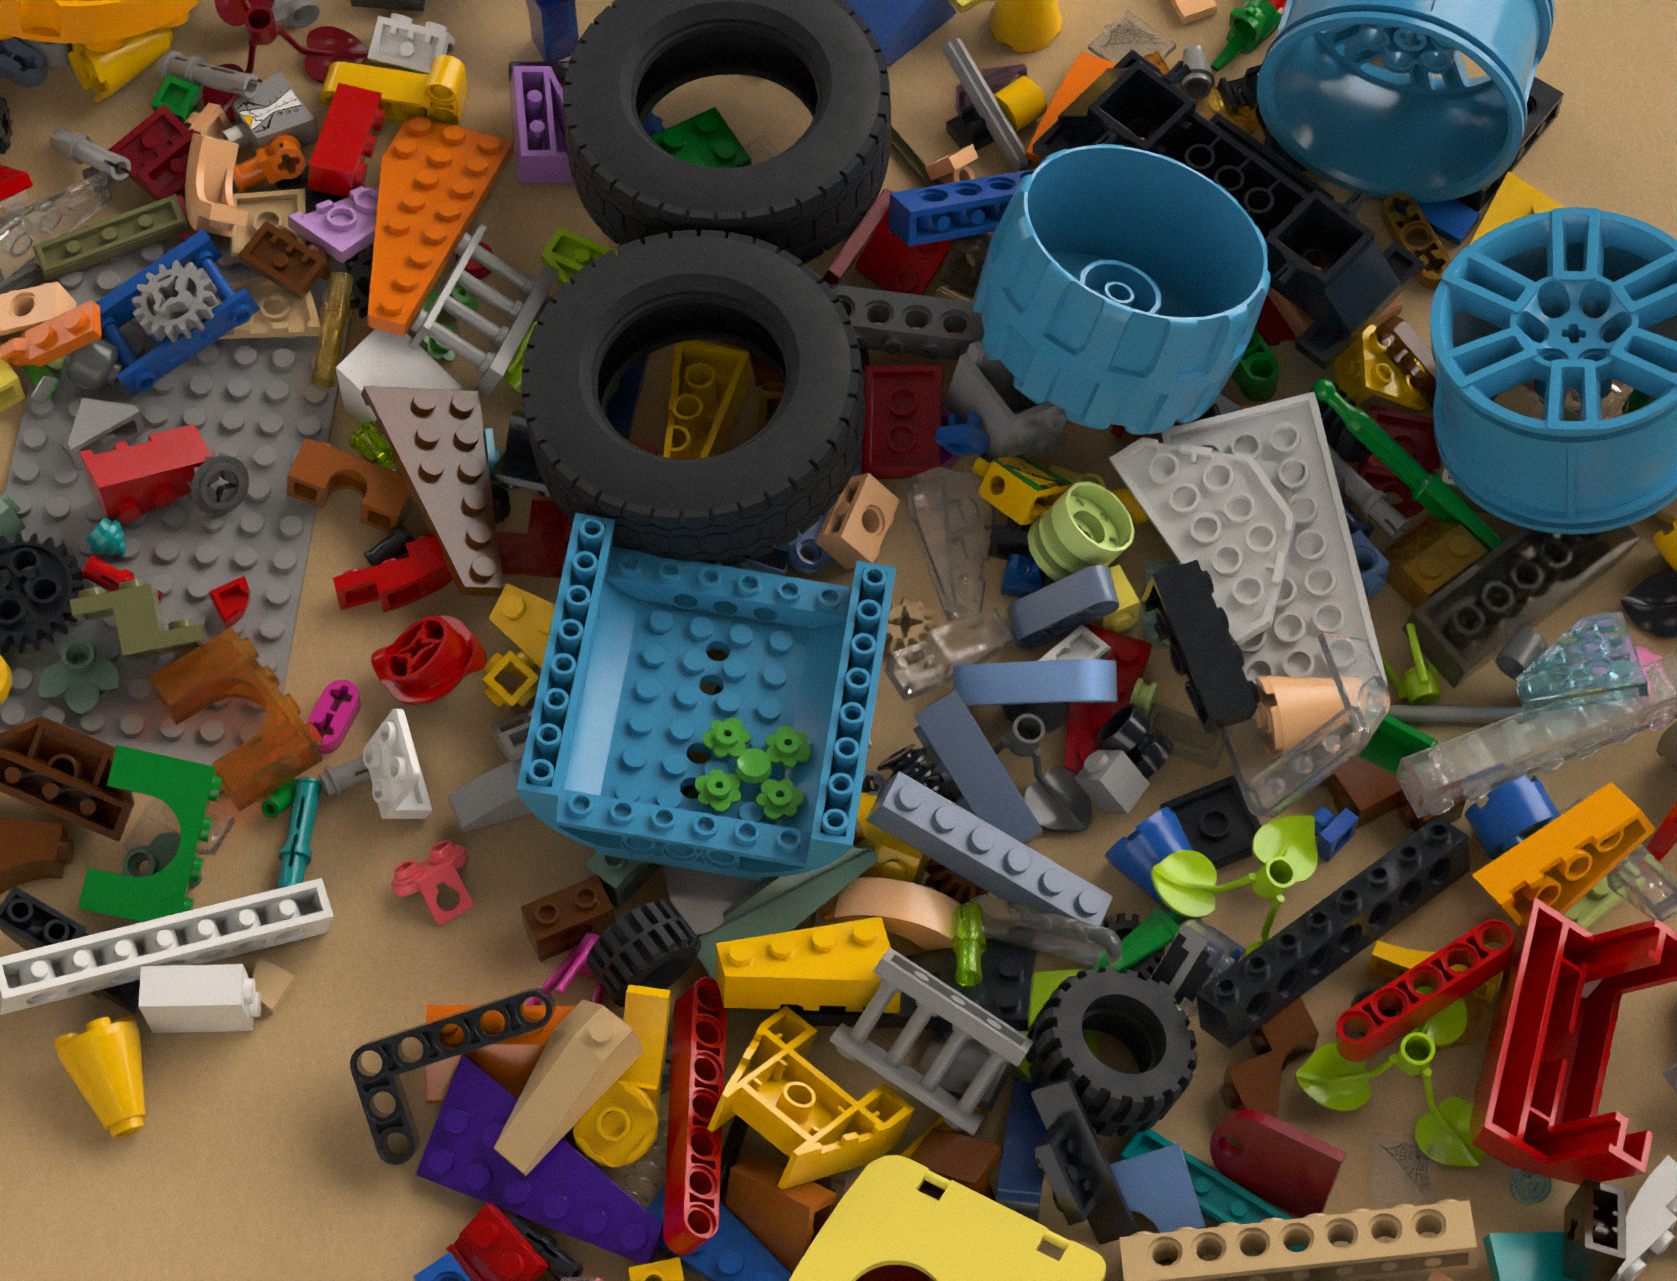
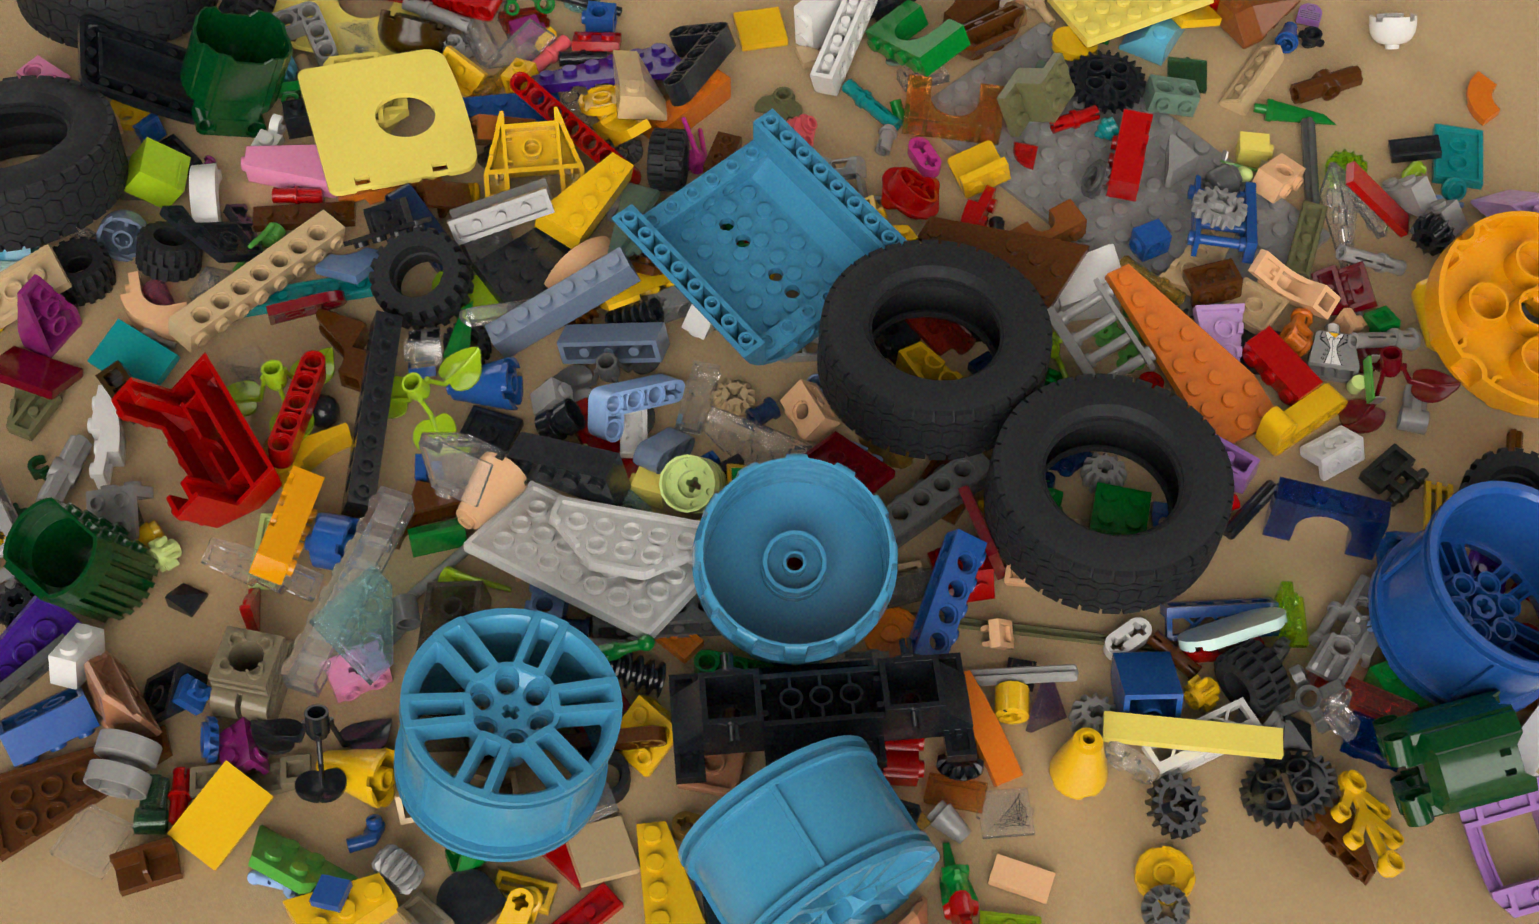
camera: 130 degrees right, 5 degrees down
(54, 337) = (1246, 163): orange hinge -> none
(265, 373) = (1150, 240): none -> blue brick
(271, 1086) = (760, 29): none -> yellow tile
(288, 55) = (1359, 382): none -> piece
(309, 625) = (978, 168): none -> yellow bracket
(396, 770) = (862, 142): white bracket -> none
(405, 940) = (782, 102): none -> olive plate
(435, 754) = (854, 169): none -> light grey piece
(753, 767) = (709, 245): bright green plant -> none
(908, 574) = (764, 412): none -> dark blue bush
(968, 27) = (1086, 709): none -> light grey gear
(968, 944) = (533, 271): clear neon green pin -> none

